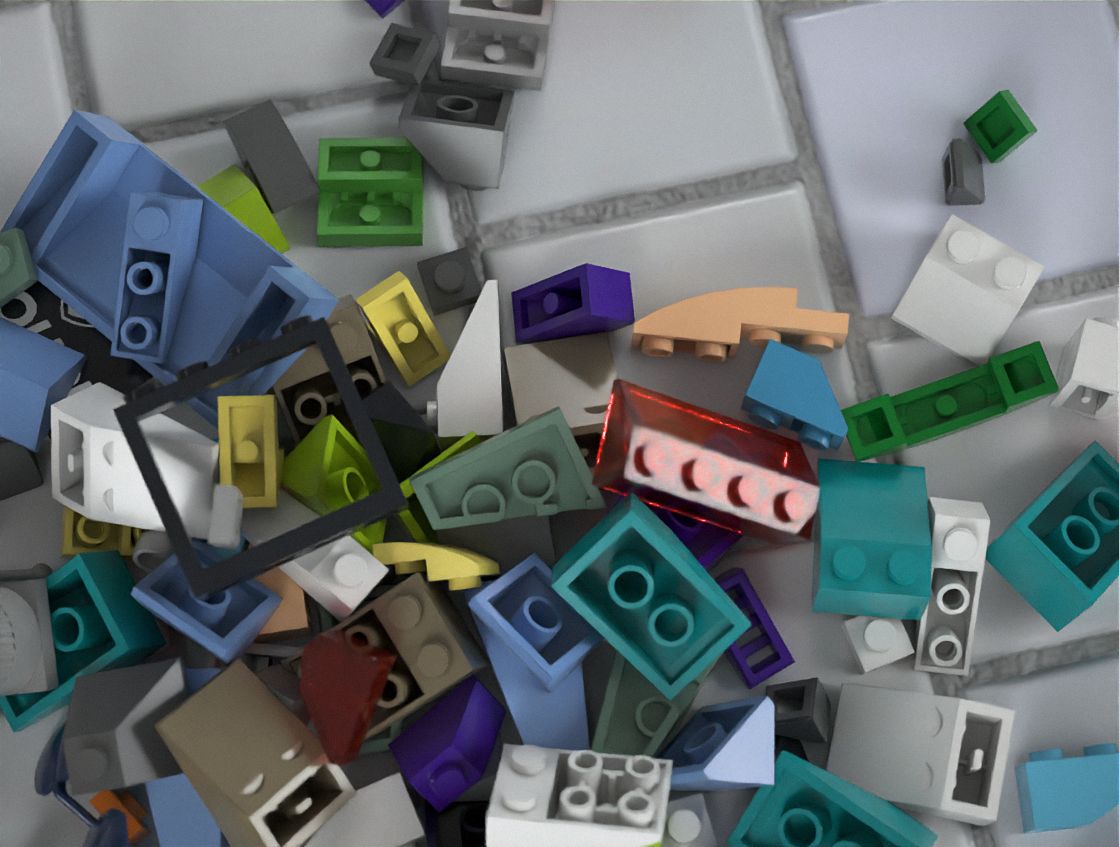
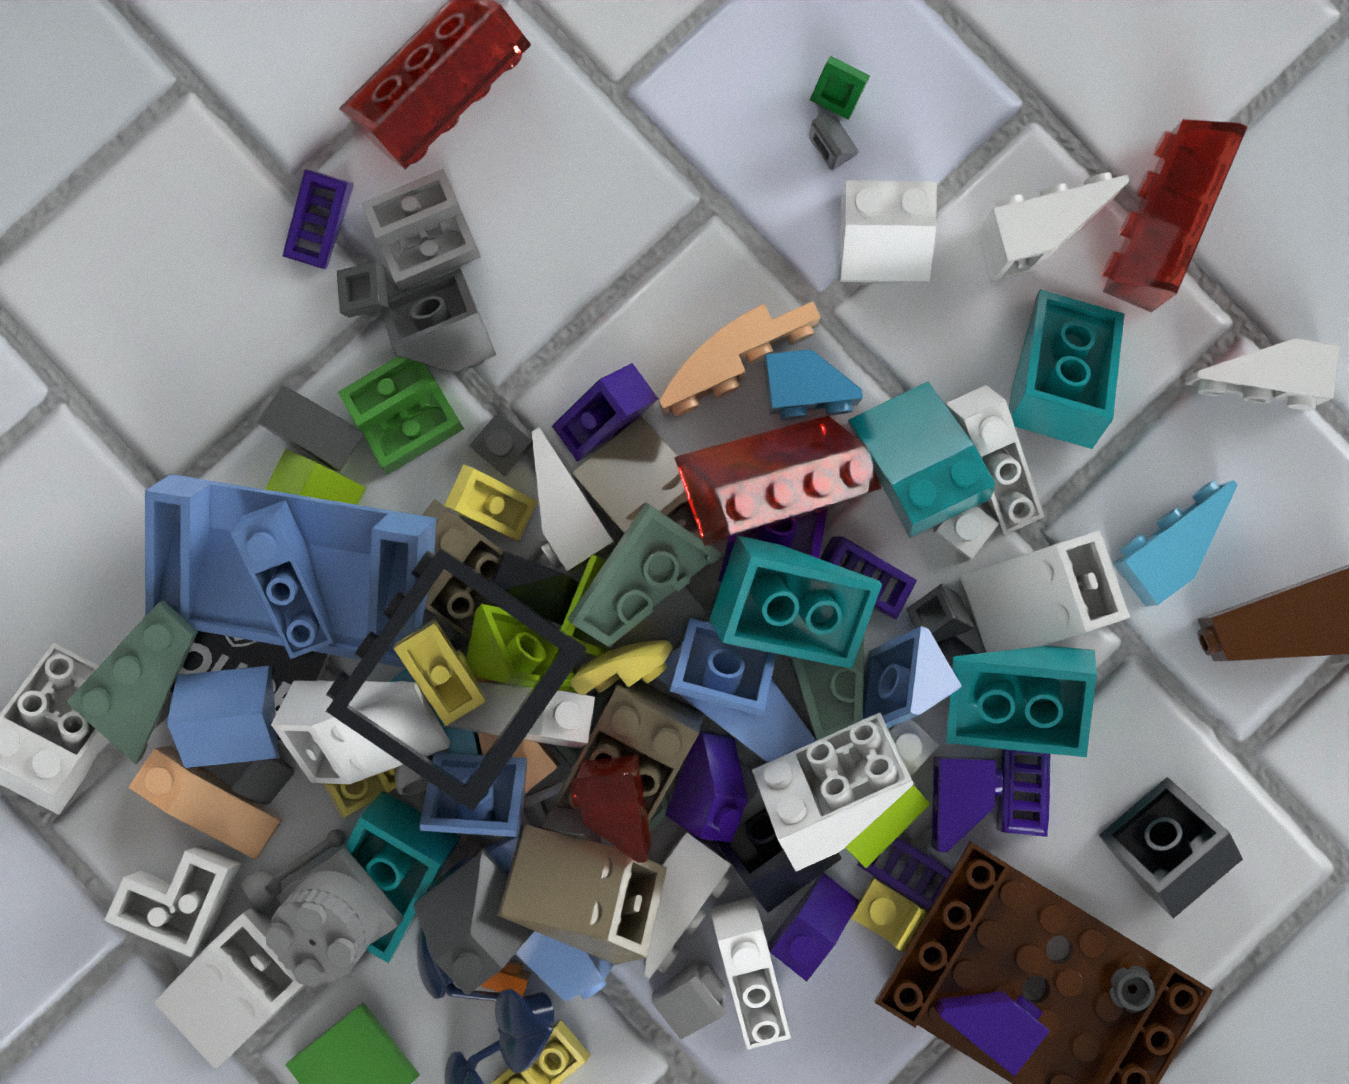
camera: 30 degrees left, 10 degrees up
(225, 516) = (461, 742): light grey tile -> none
(949, 404) = (921, 323): green slope -> none

